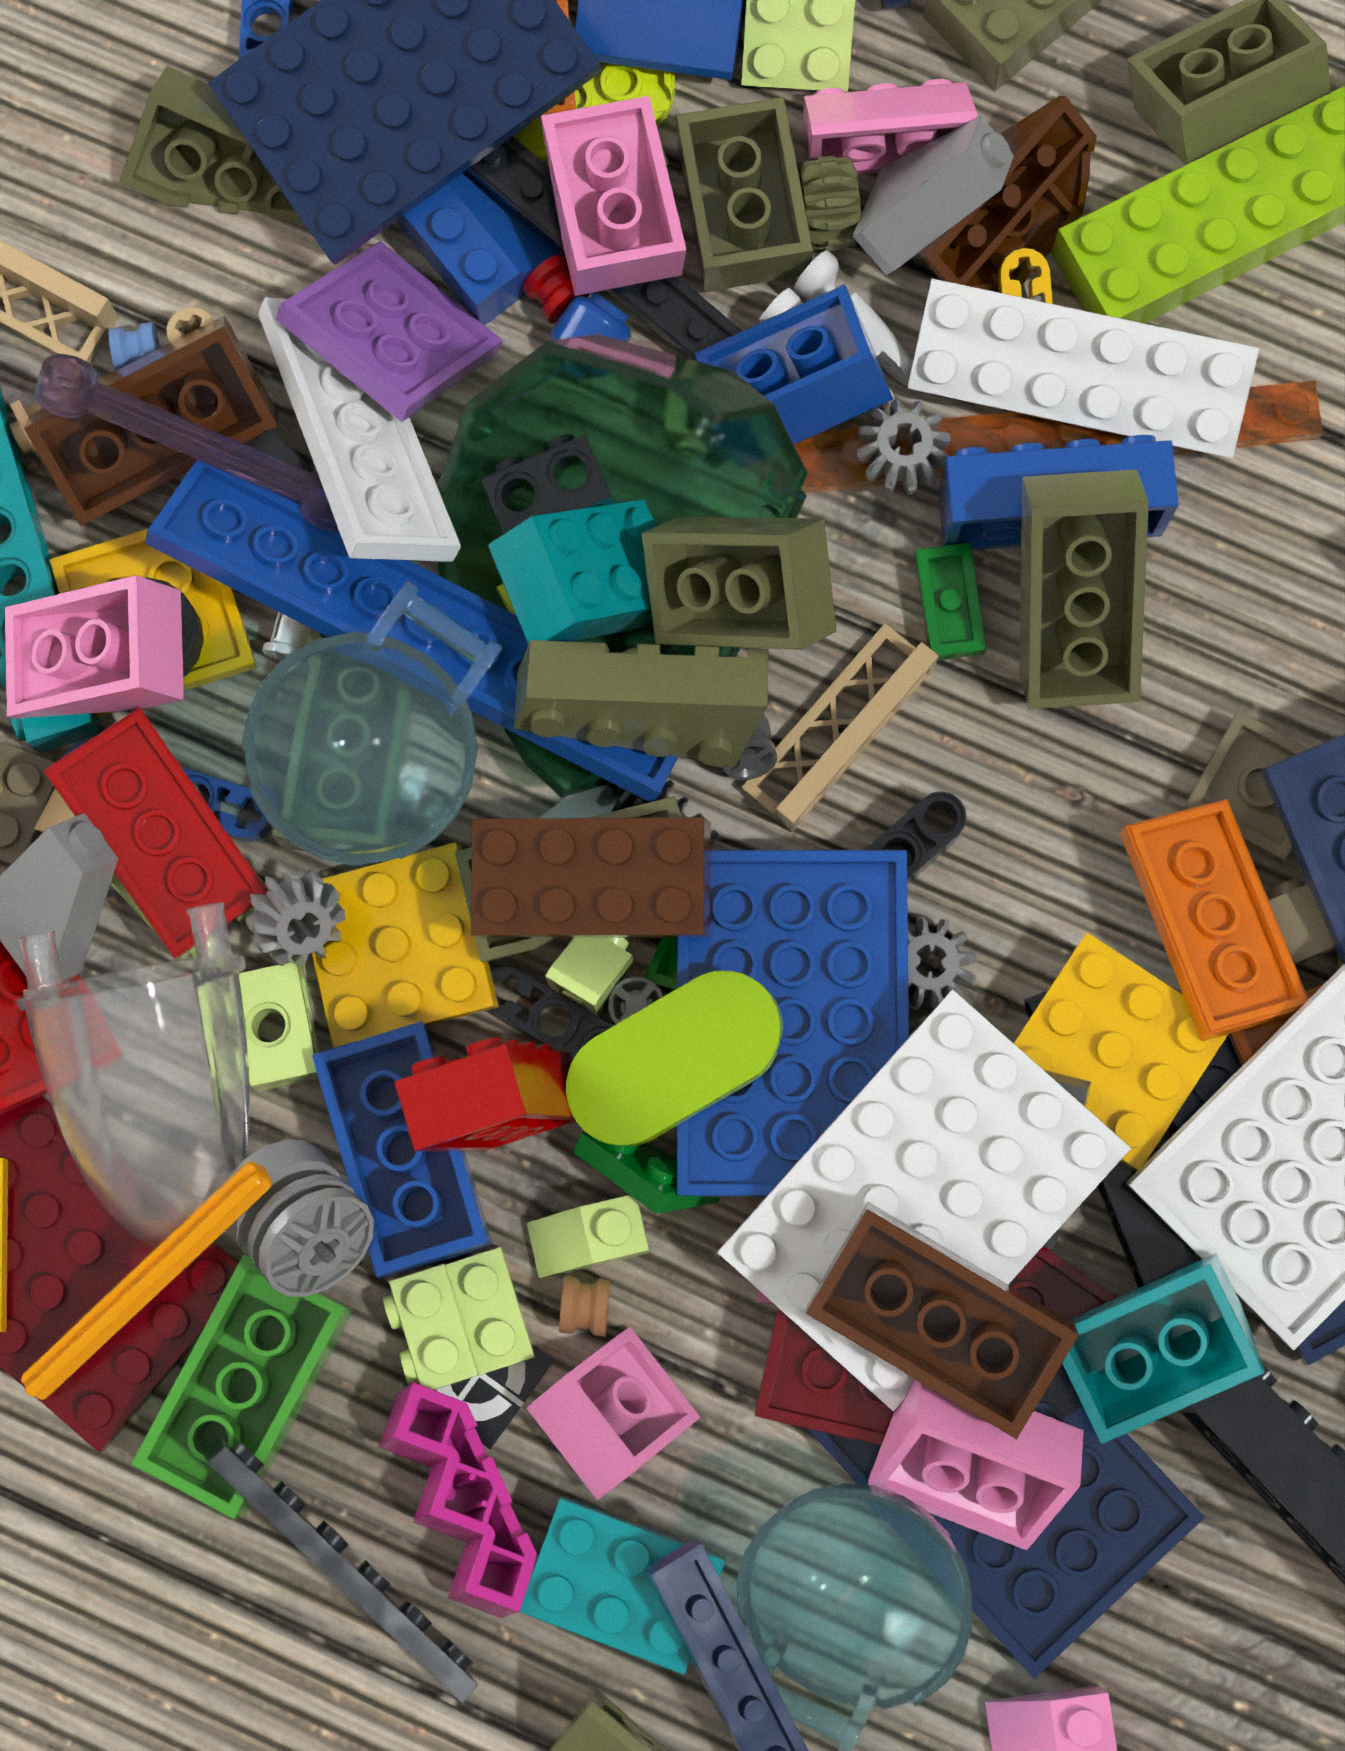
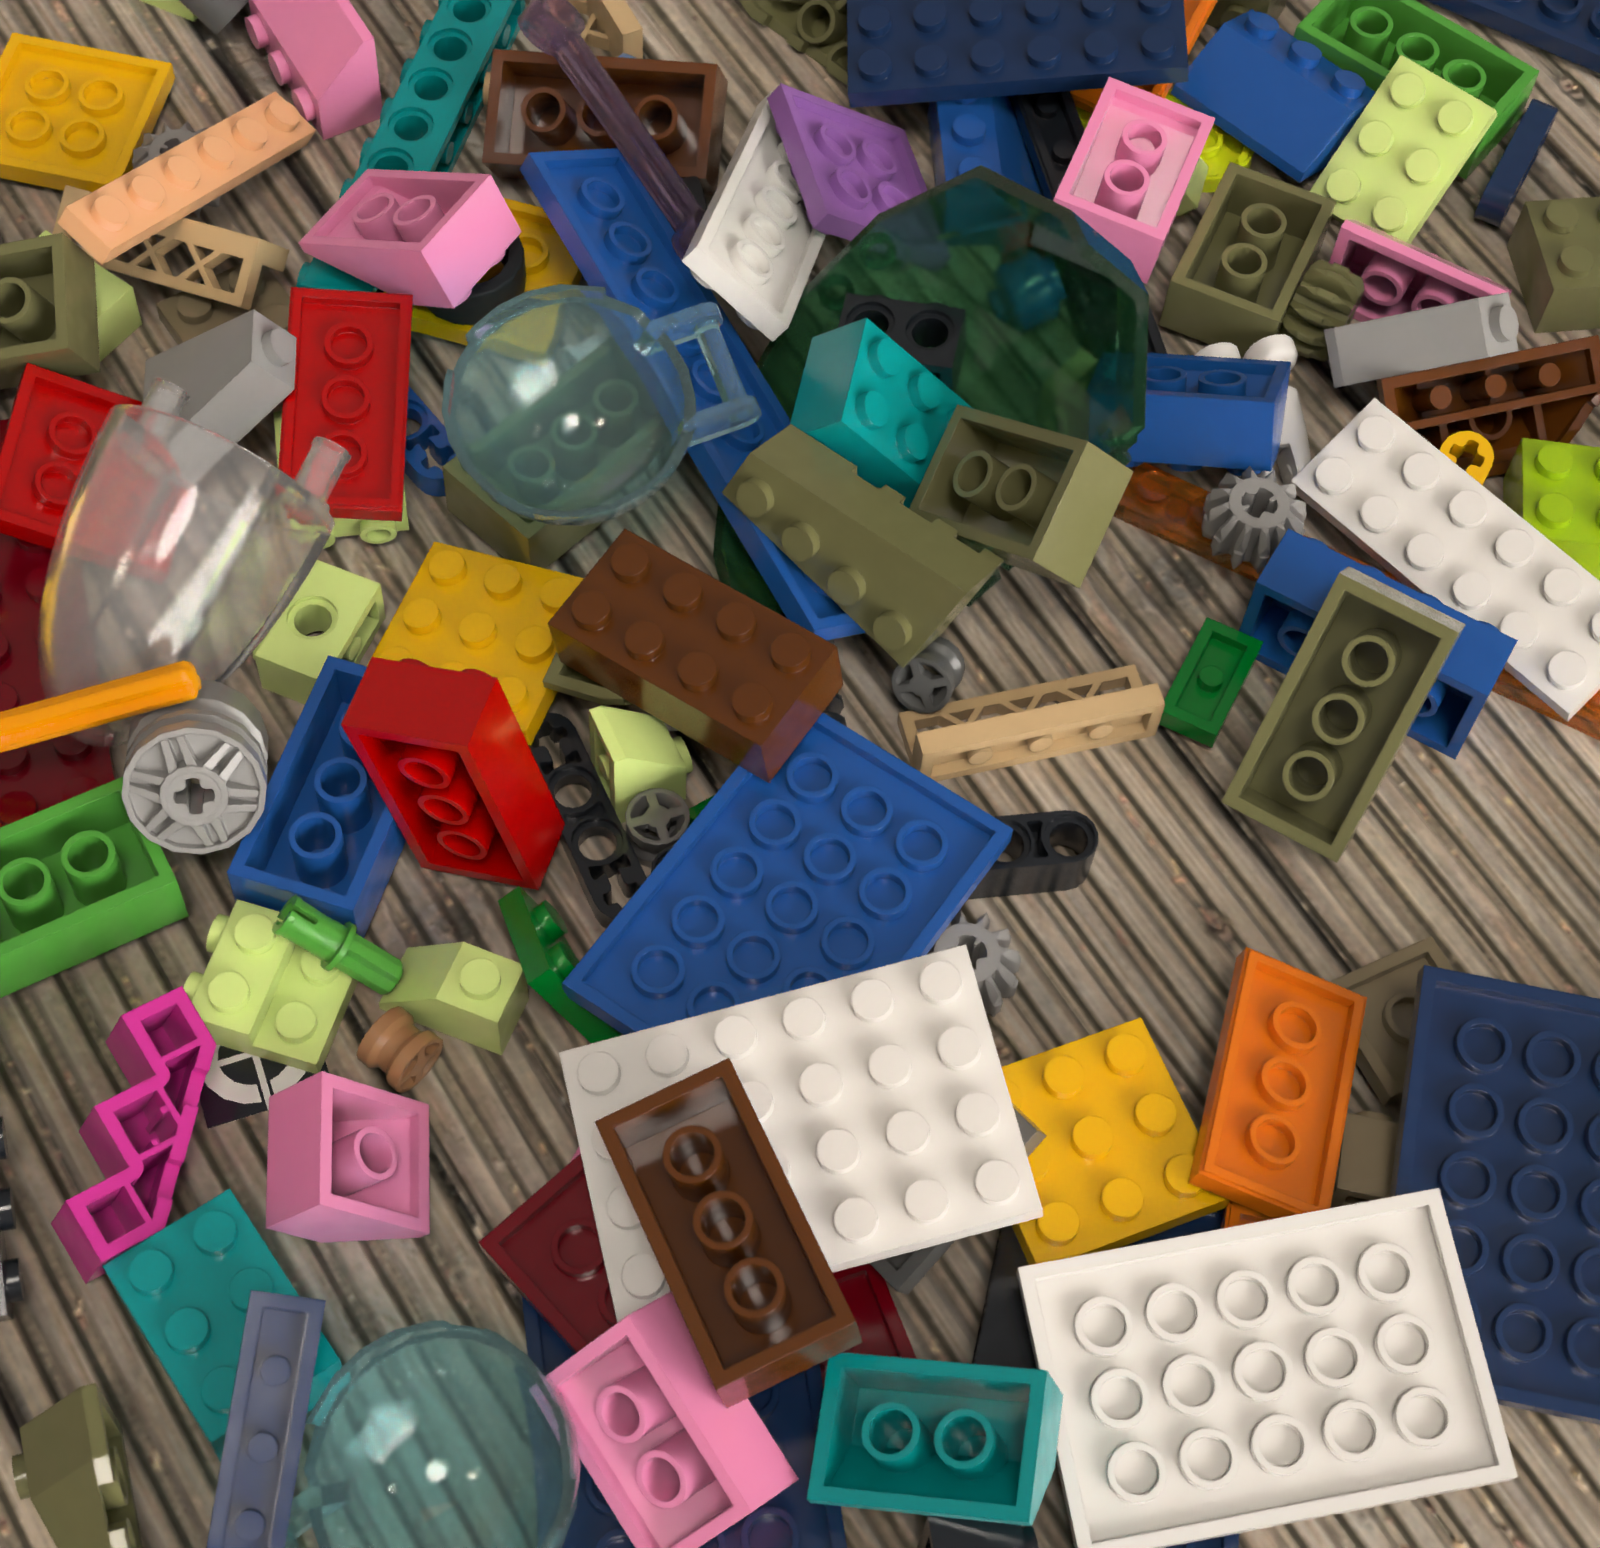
camera: 25 degrees right, 20 degrees down
(295, 917) = (412, 519): light grey gear -> none
(490, 1268) = (338, 946): none -> bright green axle
(674, 1058) = (653, 858): lime tile -> none

